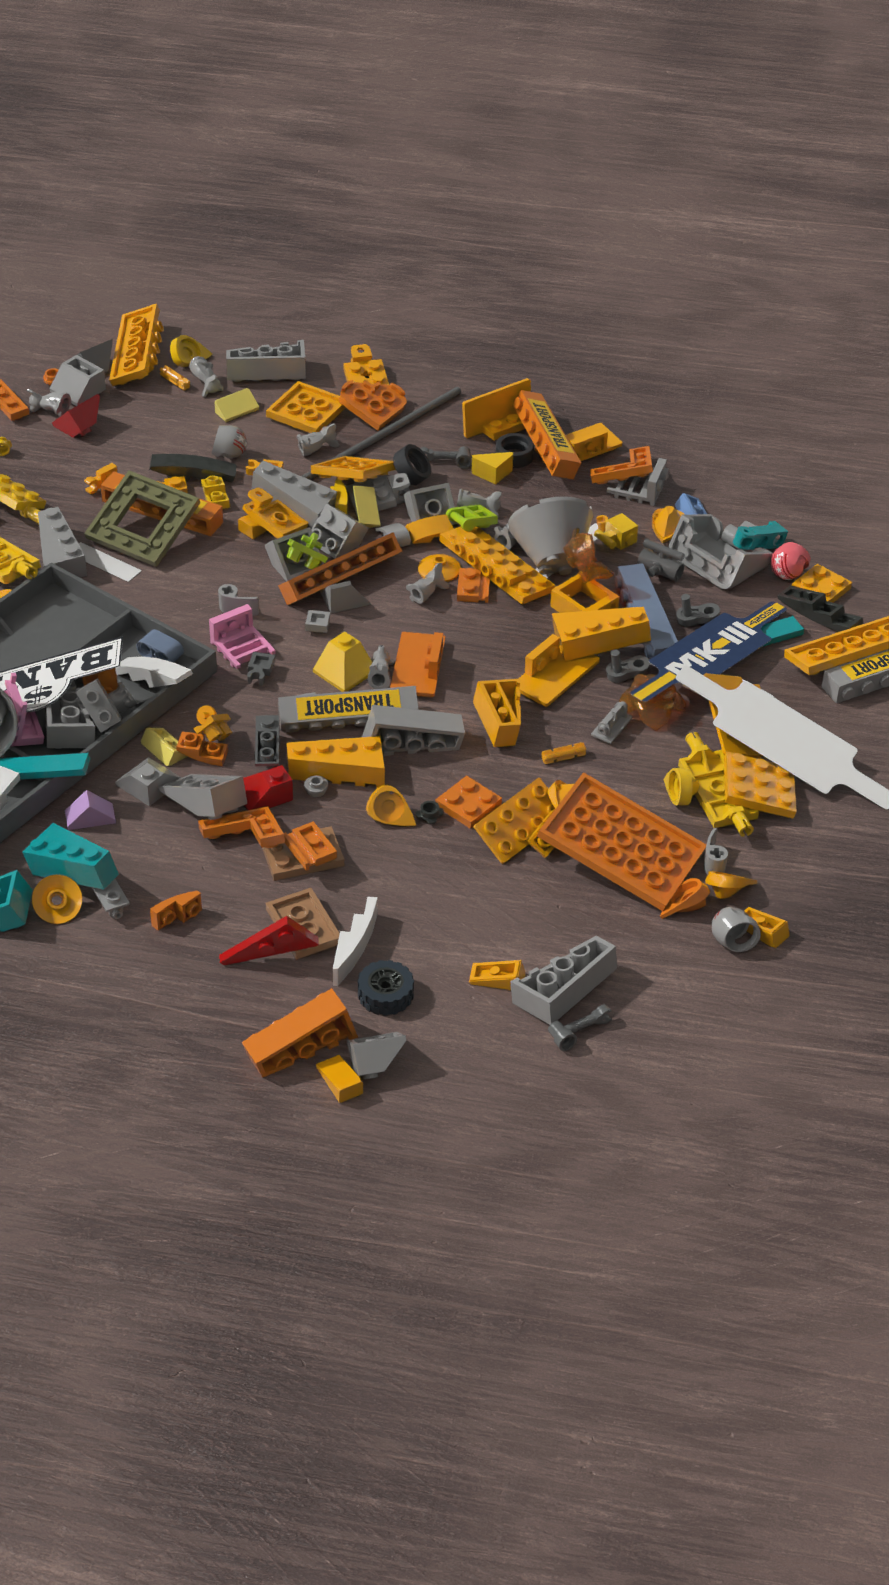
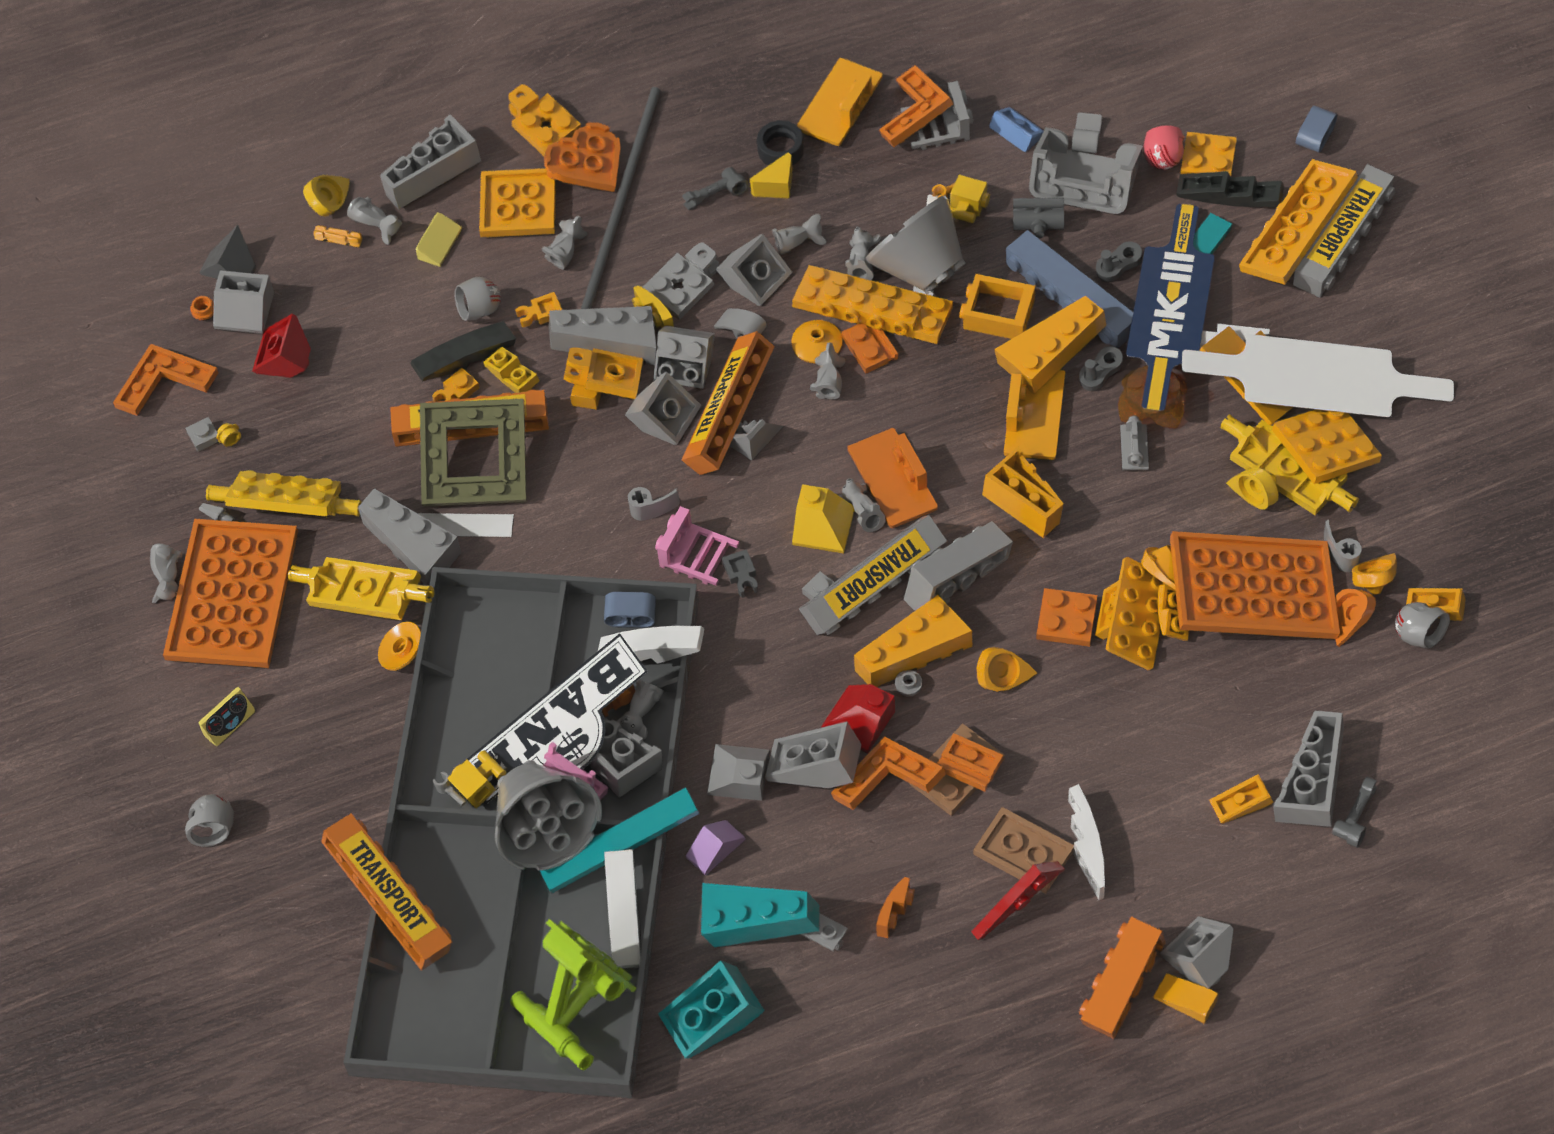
camera: 25 degrees left, 15 degrees up
(53, 401) = (237, 343): light grey animal -> none
(57, 886) = (783, 964): light orange dish -> none
(99, 705) = (643, 722): light grey brick -> none
(101, 475) = (380, 418): light orange plate -> none
(136, 345) = (262, 215): light orange plate -> none
(162, 745) = (720, 721): light yellow slope -> none
(197, 748) = (764, 706): orange slope -> none
(213, 724) = (758, 672): light orange hips -> none
(267, 740) = (829, 663): dark grey slope -> none
(296, 550) = (683, 399): lime hips -> none
(317, 621) = (753, 481): light grey plate -> none
(353, 467) = (642, 264): light orange plate -> none
(366, 506) = (690, 306): light yellow slope -> none
(385, 987) = (1149, 862): black wheel -> none
(414, 455) = (697, 224): black tyre -> none
(427, 528) = (775, 298): light orange slope -> none
(429, 812) = (1041, 645): pearl dark grey plate -> none
(473, 517) = (814, 255): lime plate -> none
(494, 412) = (730, 107): light orange bracket -> none
(547, 434) = (806, 109): orange brick -> none
(564, 753) = (1113, 507): light orange axle -> none
(582, 556) = (982, 262): clear orange brick -> none
(665, 522) = (1003, 158): light orange piece -> none
(760, 536) = (1119, 126): teal leg -> none

